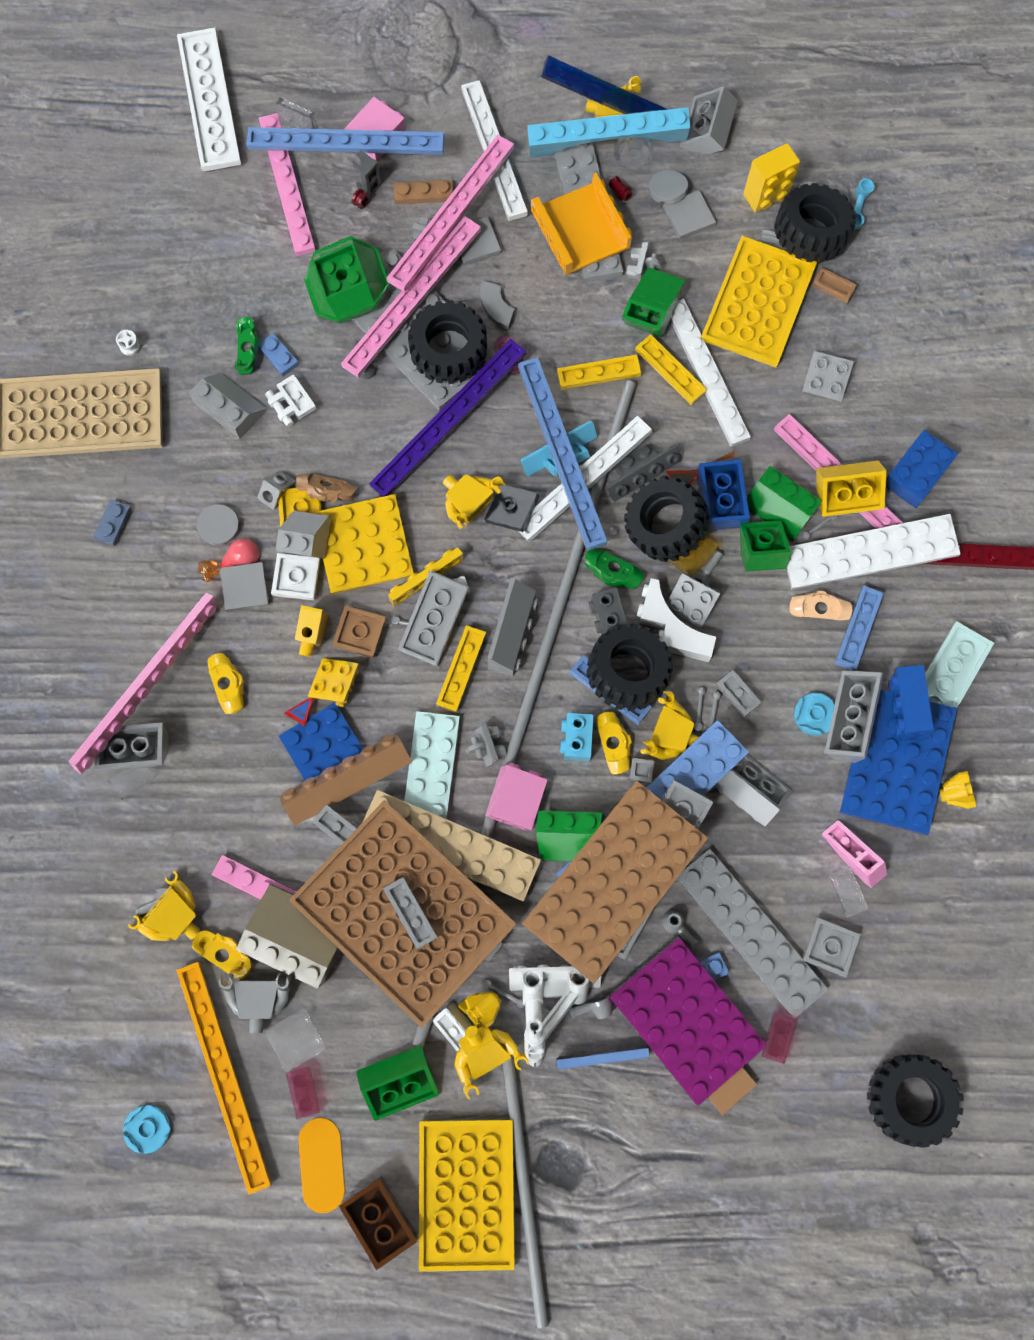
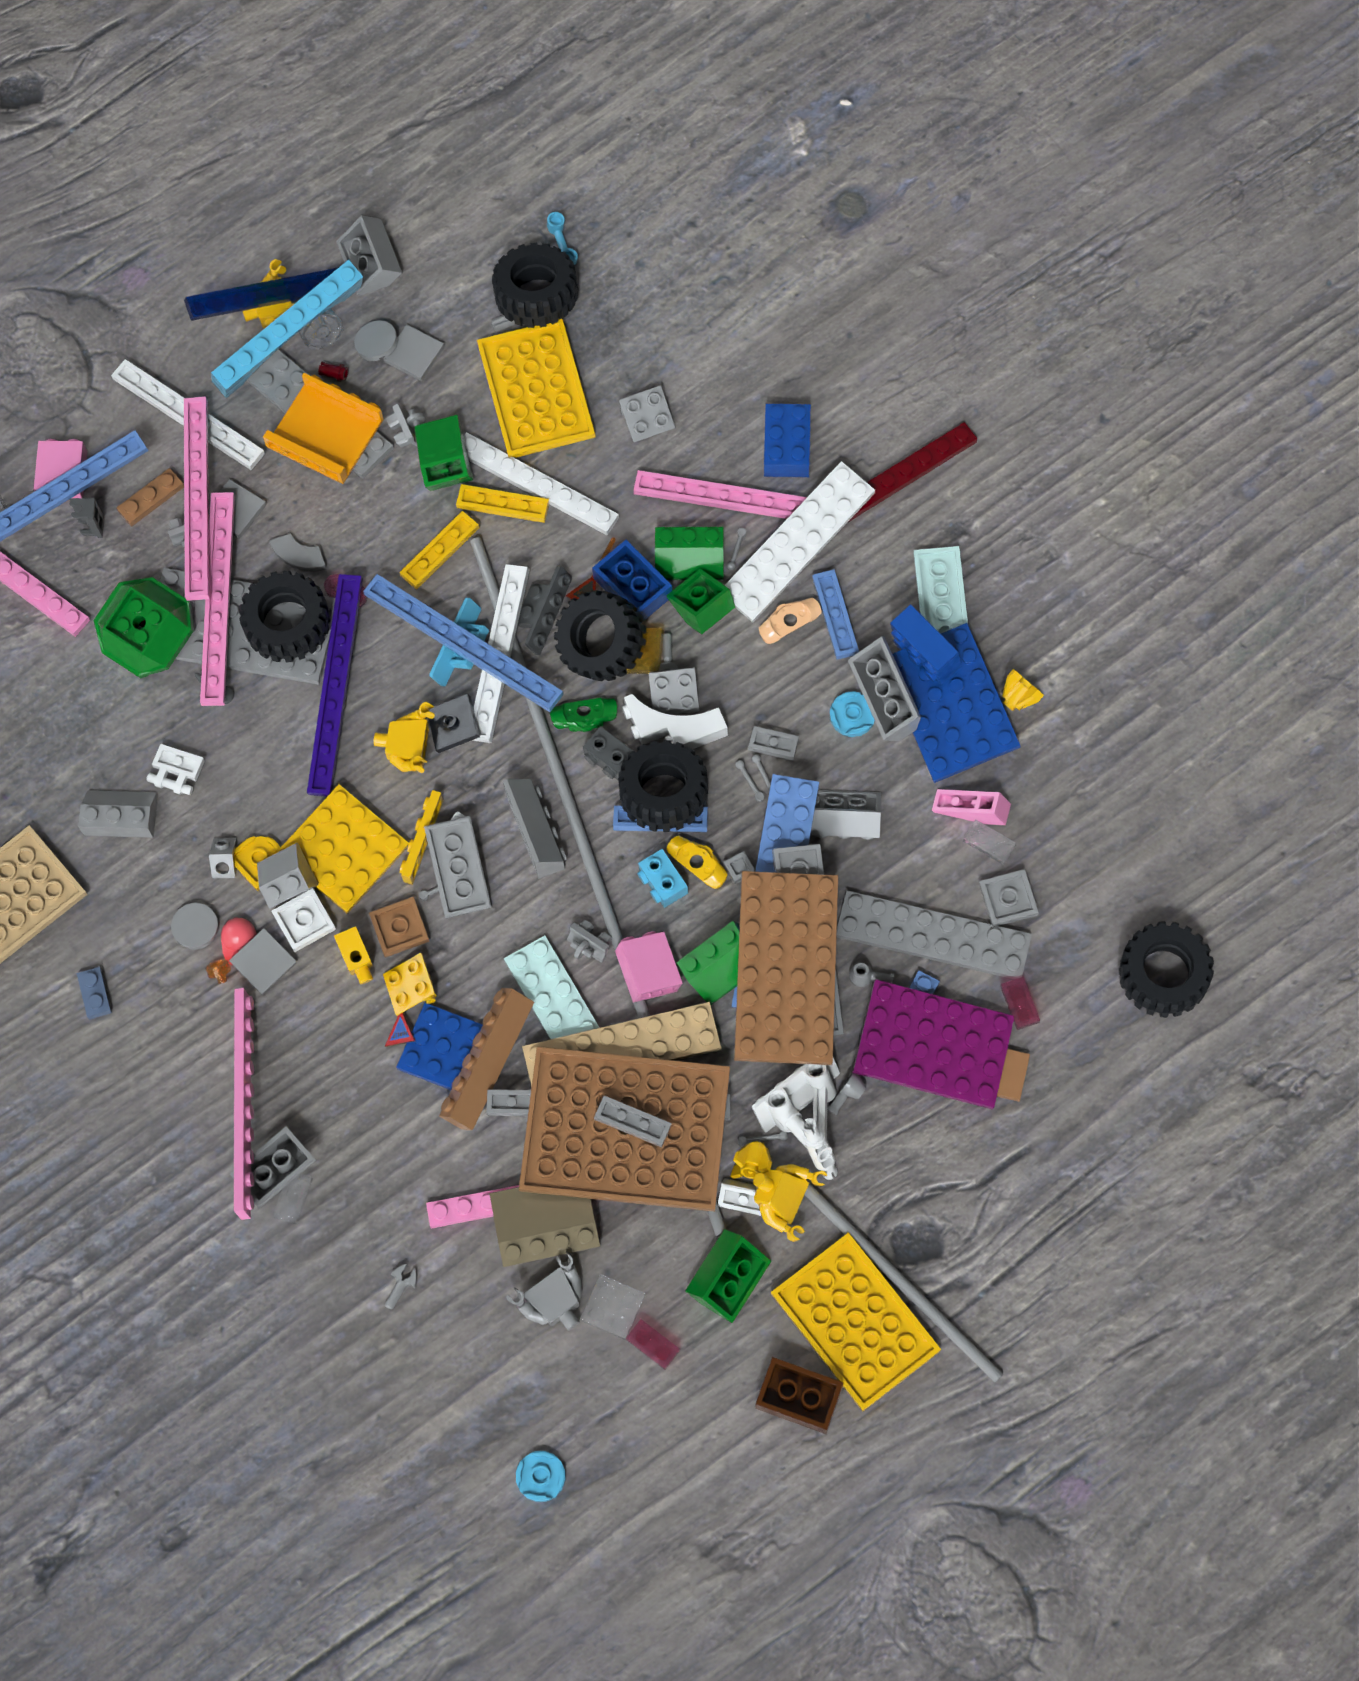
camera: 30 degrees left, 5 degrees down
(170, 914) = (420, 1283): yellow torso -> none
(209, 944) = (474, 1285): yellow piece -> none
(224, 1078) = (574, 1383): light orange plate -> none
(230, 698) = (327, 1066): yellow piece -> none
(246, 333) = (84, 737): green piece -> none
(278, 354) = (129, 737): medium blue plate -> none
(321, 1165) = (714, 1393): light orange sticker -> none
(338, 489) = (279, 824): medium nougat piece -> none
(360, 198) = (97, 543): dark red bush -> none
(461, 668) = (515, 894): yellow plate -> none
(602, 1058) = (885, 1127): medium blue tile -> none
(671, 731) = (739, 814): yellow torso -> none
(771, 177) = (467, 271): yellow brick -> none
(834, 285) = (592, 328): medium nougat tile -> none
(851, 488) = (740, 498): yellow slope -> none

